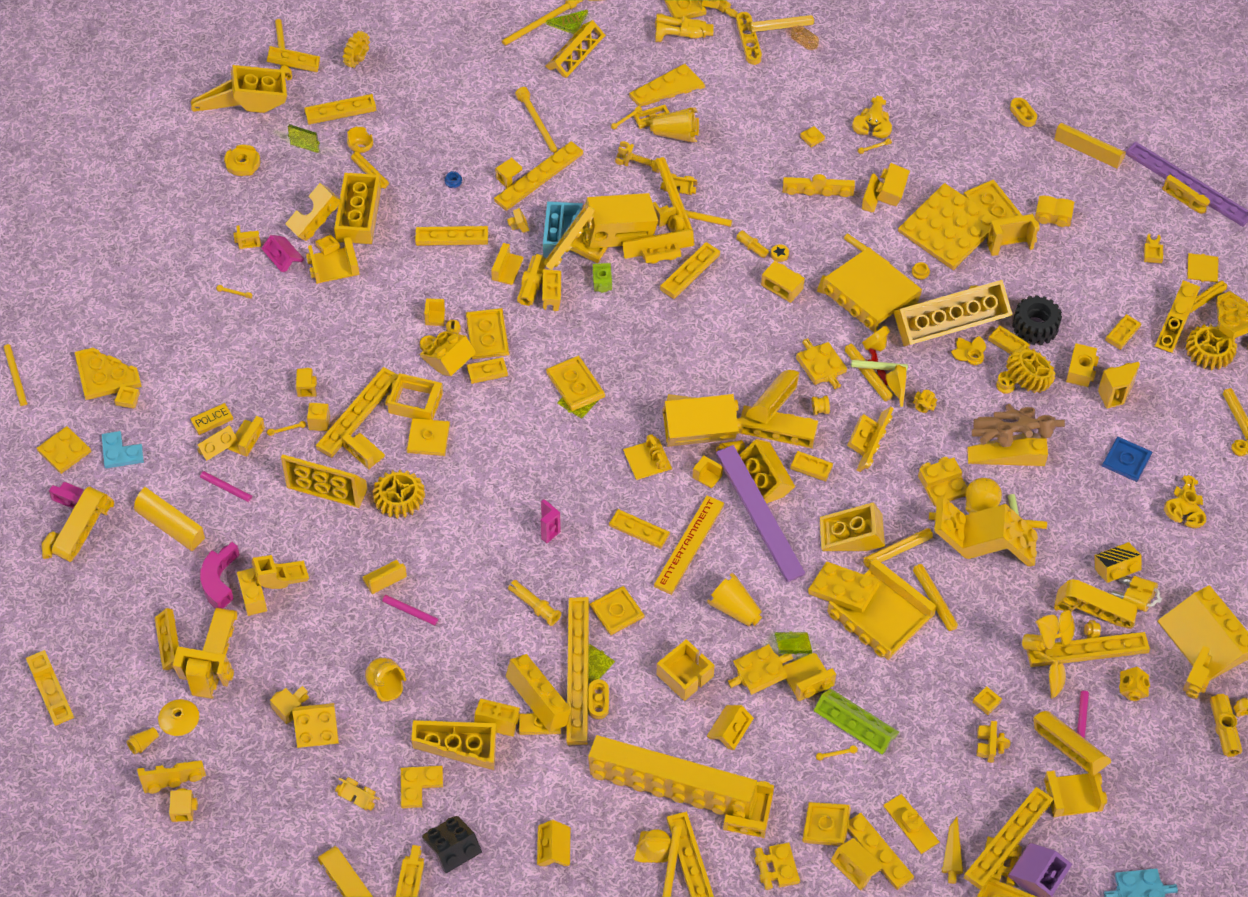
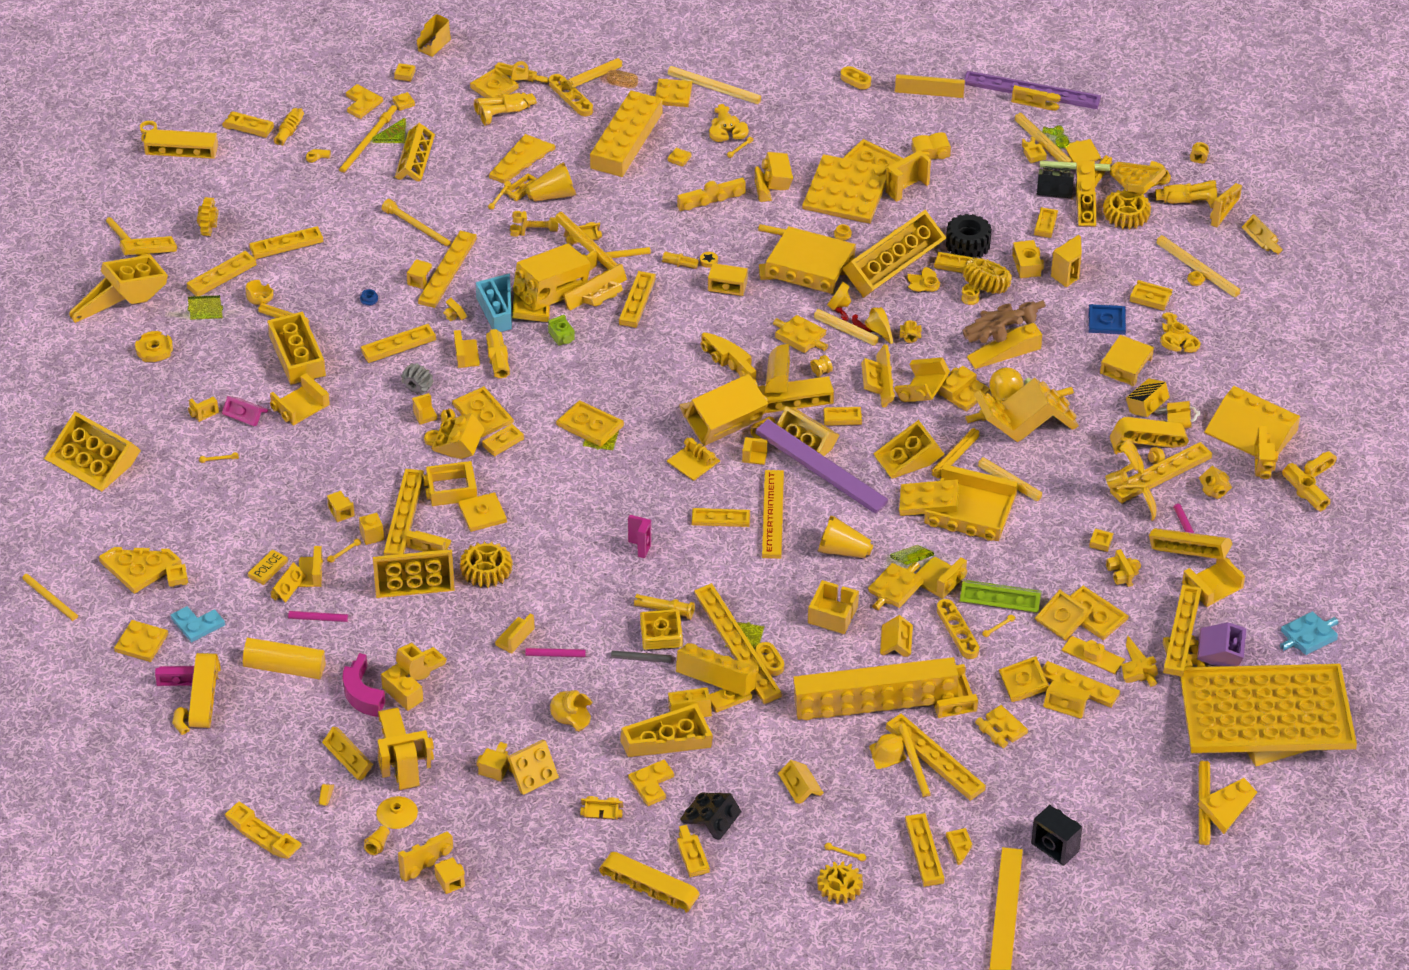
camera: 25 degrees left, 10 degrees down
(126, 672) = (325, 793): none -> yellow tile
(129, 245) = (91, 452): none -> yellow slope
(323, 205) = (255, 378): yellow arch -> none
(327, 244) = (284, 389): yellow tile -> none
(413, 98) = (286, 242): none -> yellow plate
(444, 279) = (417, 378): none -> light grey gear
(484, 646) = (641, 656): none -> flat silver bar
(489, 19) = (316, 154): none -> yellow arm
(505, 631) = (661, 629): none -> yellow brick
(551, 288) = (523, 353): yellow hinge -> none
(565, 242) = (518, 300): yellow plate -> none
(617, 610) = (741, 586): yellow tile -> none
(675, 223) = (600, 265): yellow tile -> none
(741, 360) = (728, 353): none -> yellow slope
(774, 95) = (626, 133): none -> yellow brick
(797, 741) = (960, 628): none -> yellow beam
(844, 68) = (674, 92): none -> yellow plate
(875, 365) = (848, 318): yellowish green bar -> none
(886, 73) = (714, 85): none -> yellow axle
(902, 769) = (1062, 615): none -> yellow plate
(908, 463) = (928, 379): none -> yellow panel
(936, 777) = (1103, 617): none -> yellow tile
(943, 859) = (1136, 669): none -> yellow plate
(1119, 511) = (1126, 360): none -> yellow panel
(1156, 291) = (1055, 182): none -> black bracket
(1170, 242) = (1041, 138): none -> yellow axle
(1178, 278) = (1072, 165): none -> yellowish green bar
(1184, 449) = (1151, 295): none -> yellow plate
(1187, 248) = (1061, 140): none -> clear neon green piece

